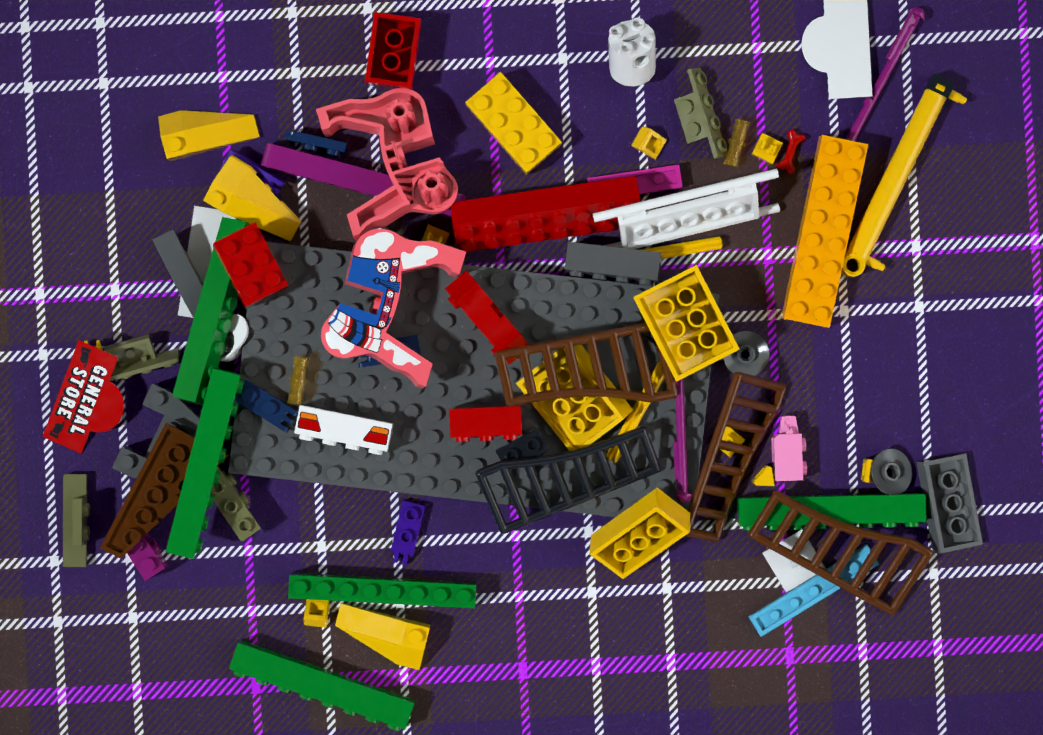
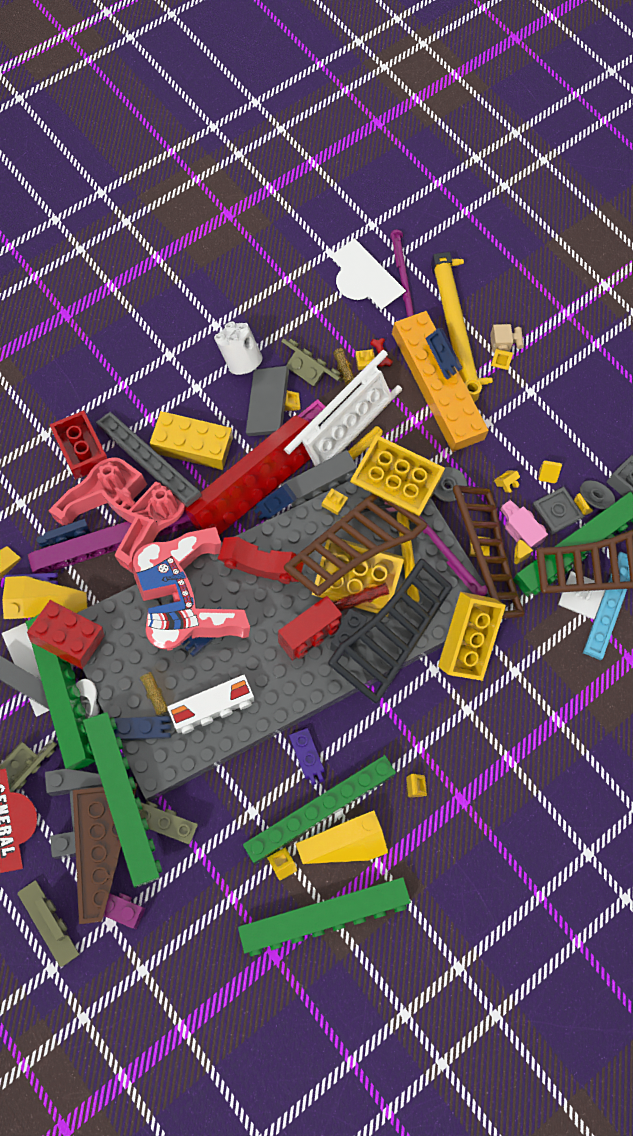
camera: 40 degrees left, 20 degrees down
(452, 119) = (149, 459): none -> dark grey tile
(489, 629) = (416, 785): none -> yellow slope
(549, 257) = (275, 502): none -> dark blue hinge
(564, 425) = (363, 596): none -> clear red pin
(608, 300) = (334, 501): none -> yellow tile
(624, 130) = (267, 400): none -> dark grey tile
(811, 391) = (506, 479): none -> yellow tile
(840, 458) = (558, 510): none -> dark grey tile
(843, 213) = (443, 353): none -> dark blue hinge
(862, 412) = (549, 471): none -> yellow slope
(915, 250) = (501, 359): none -> yellow slope
(935, 226) = (503, 338): none -> tan brick

